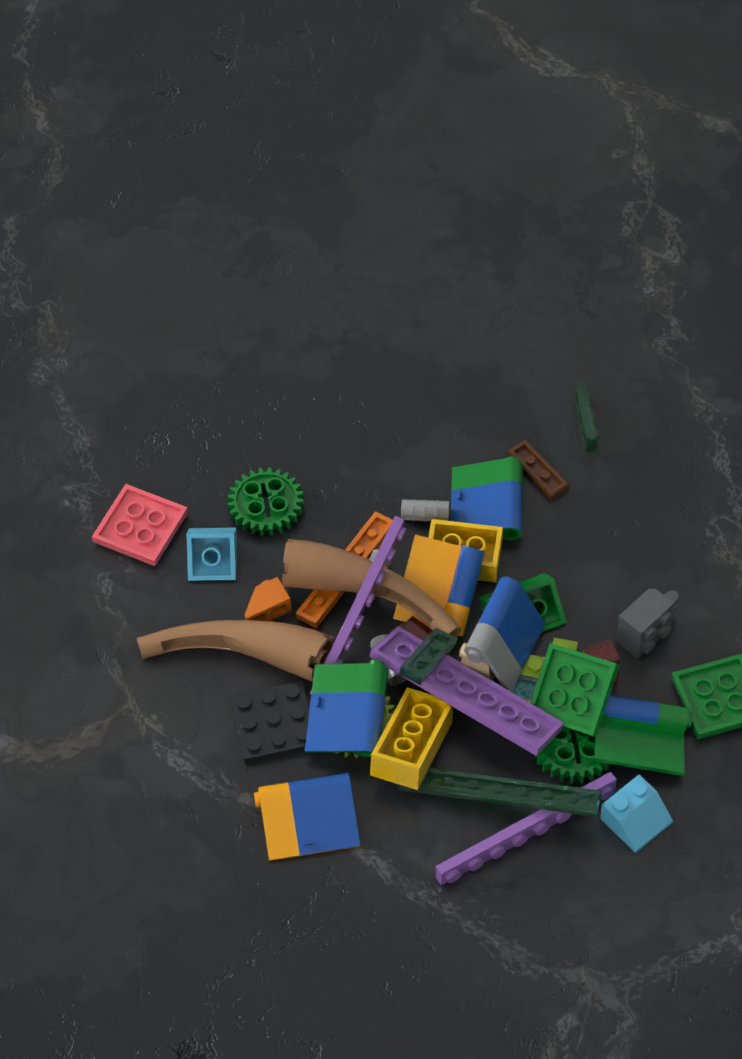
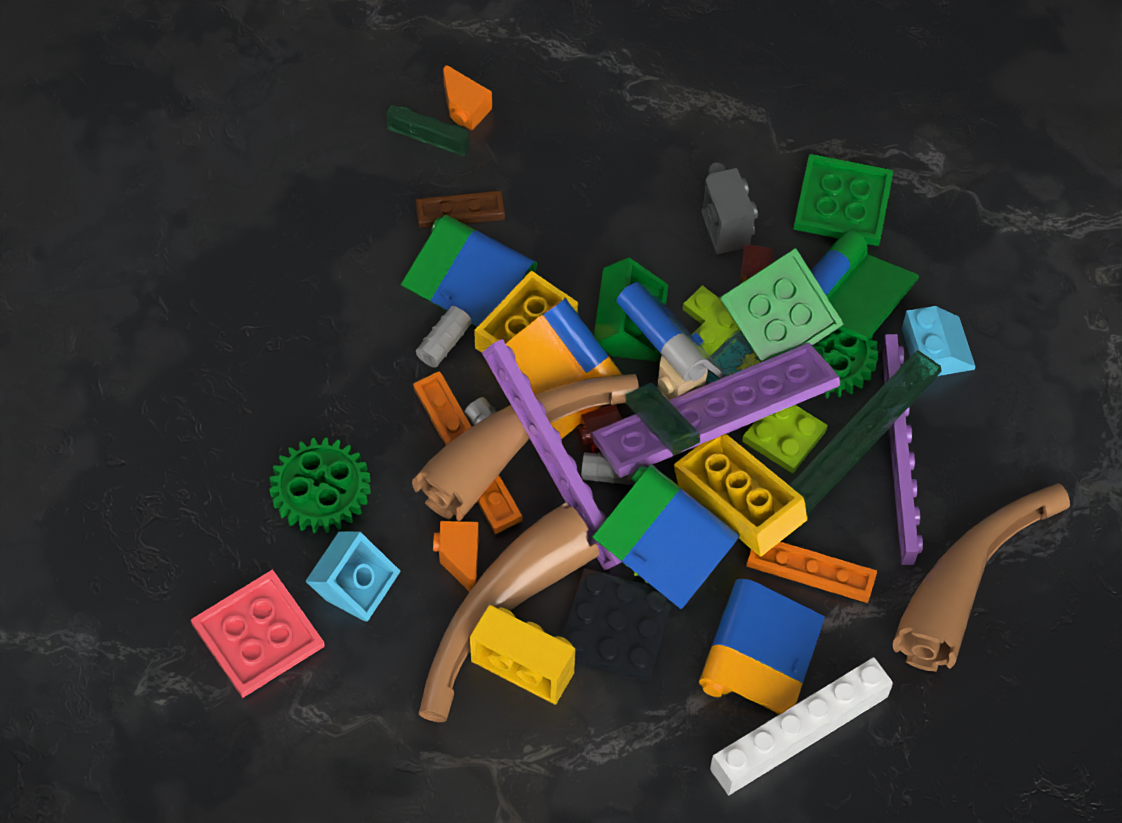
camera: 65 degrees left, 5 degrees up
(209, 672) = (522, 653): none -> yellow brick
(262, 865) = (800, 726): none -> white brick
(391, 822) = (816, 570): none -> orange plate
(415, 909) = (942, 604): none -> medium nougat brick
(490, 754) = (786, 436): none -> lime plate
(626, 423) = (466, 99): none -> orange slope

